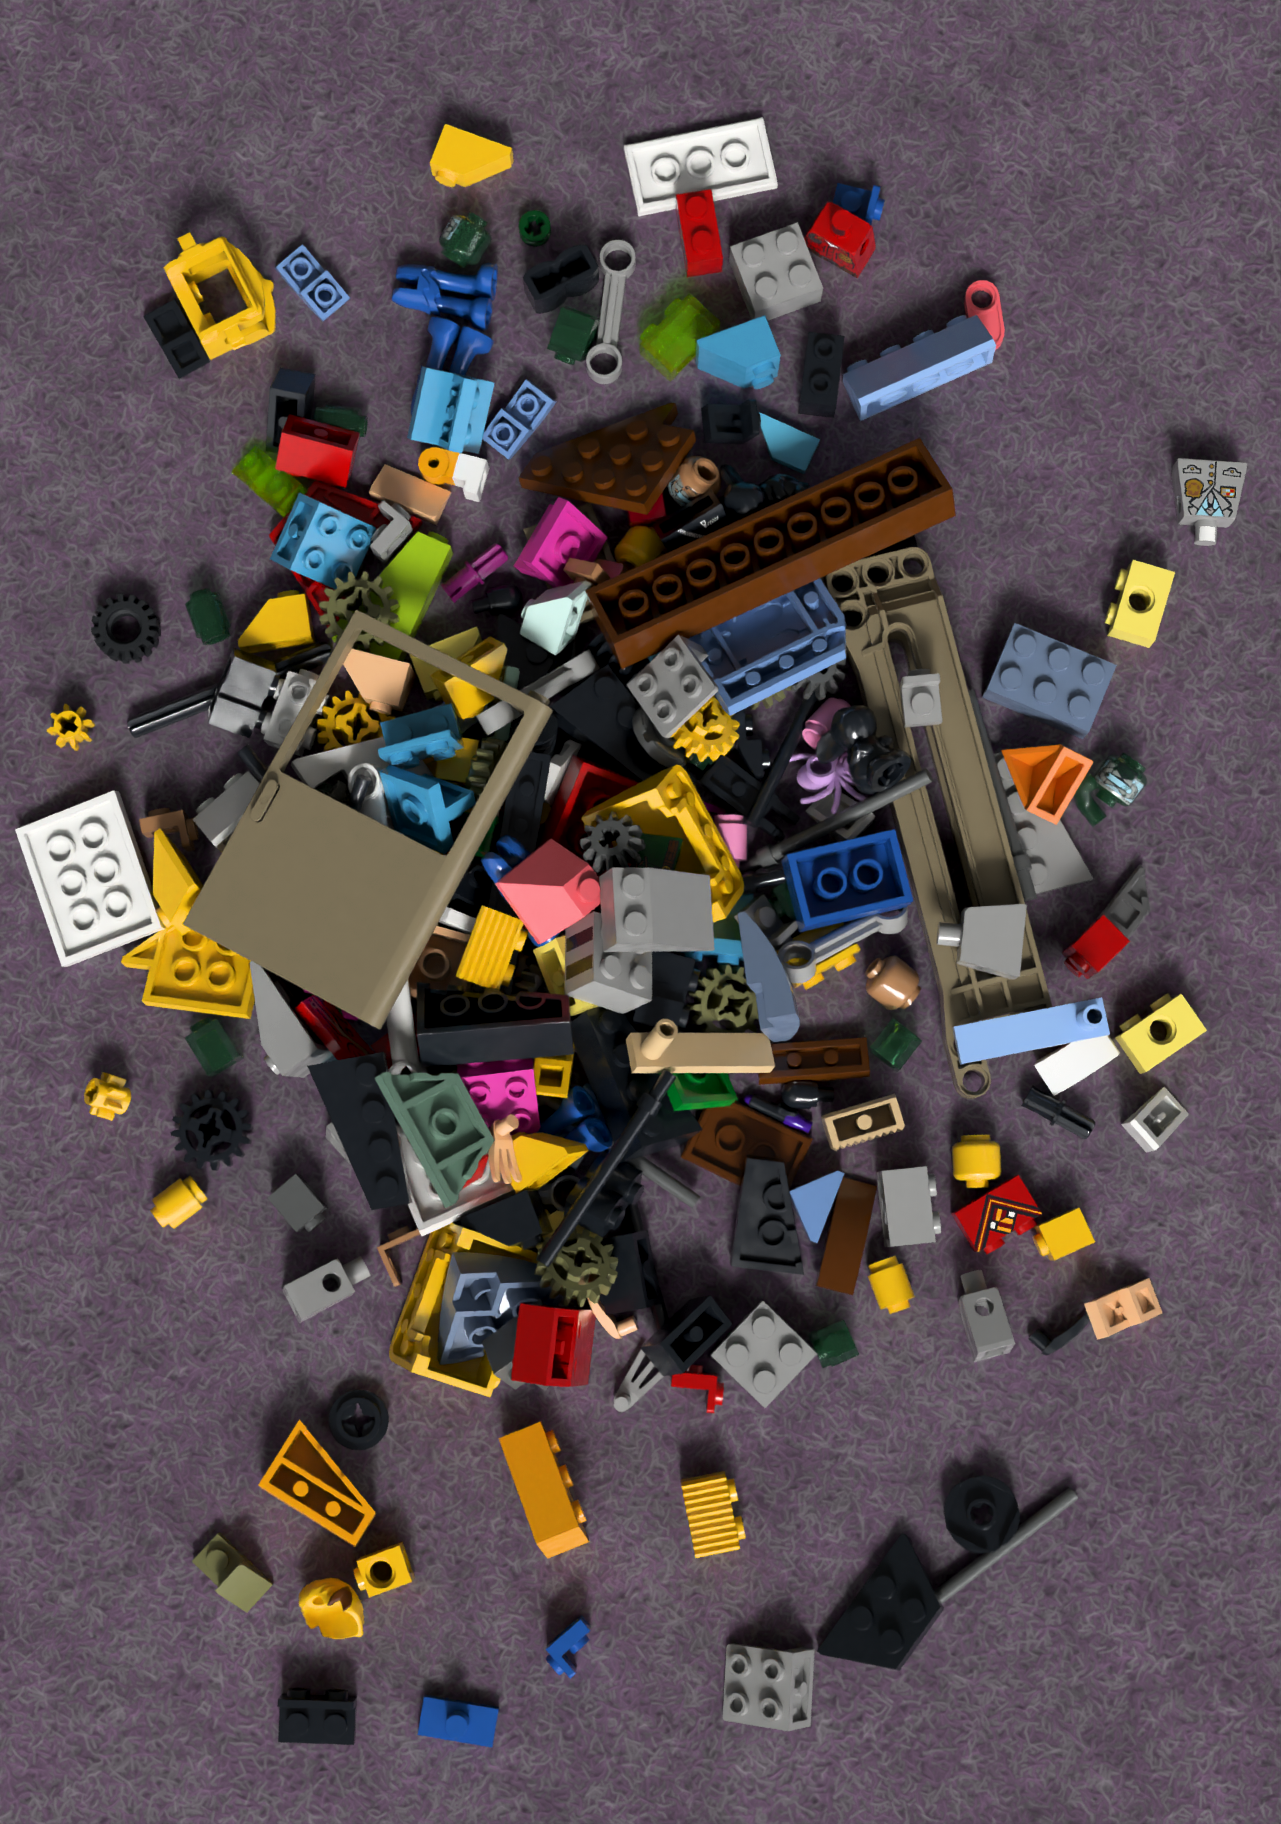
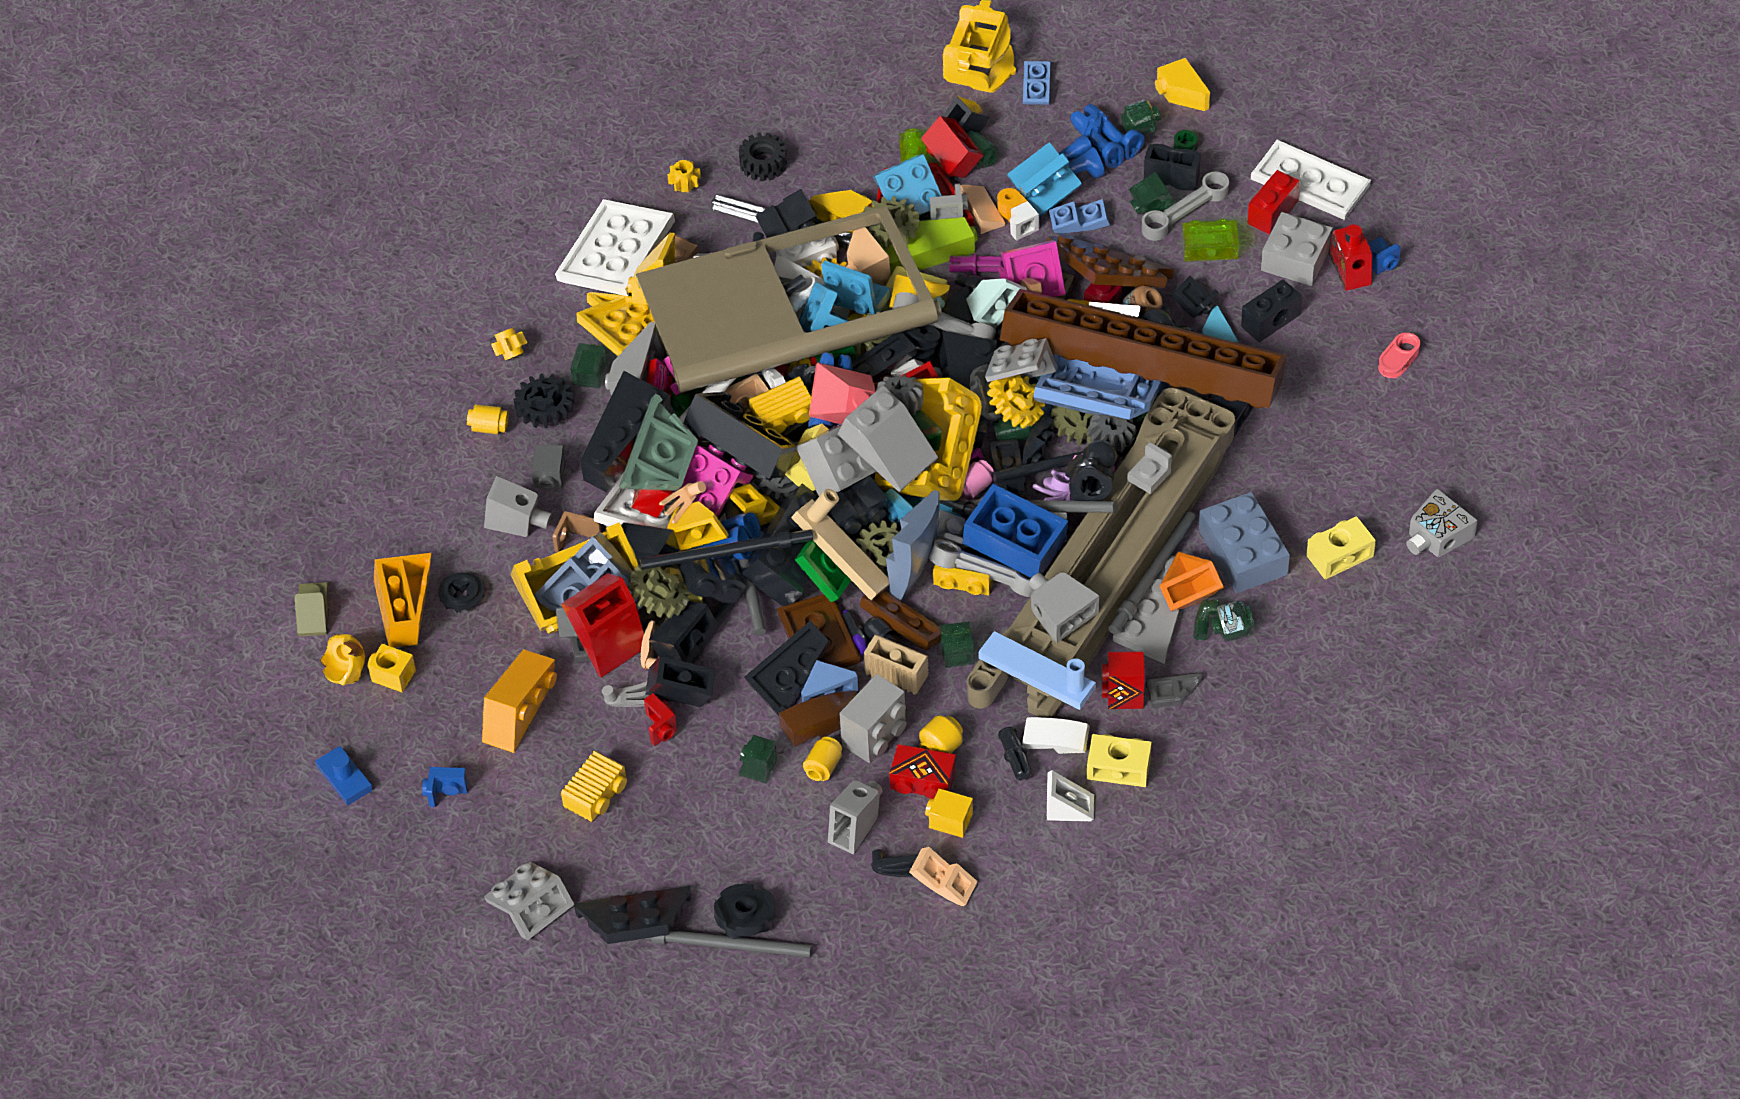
camera: 45 degrees right, 30 degrees down
(176, 339) = (932, 59): black slope -> none
(208, 616) = (812, 179): clear green brick -> none
(317, 1717) = (275, 709): black bracket -> none
(741, 354) = (1234, 264): dark azure slope -> none
(763, 1353) = (712, 731): light grey brick -> none
(892, 982) = (990, 615): medium nougat head -> none
(919, 366) = (1329, 344): light blue slope -> none

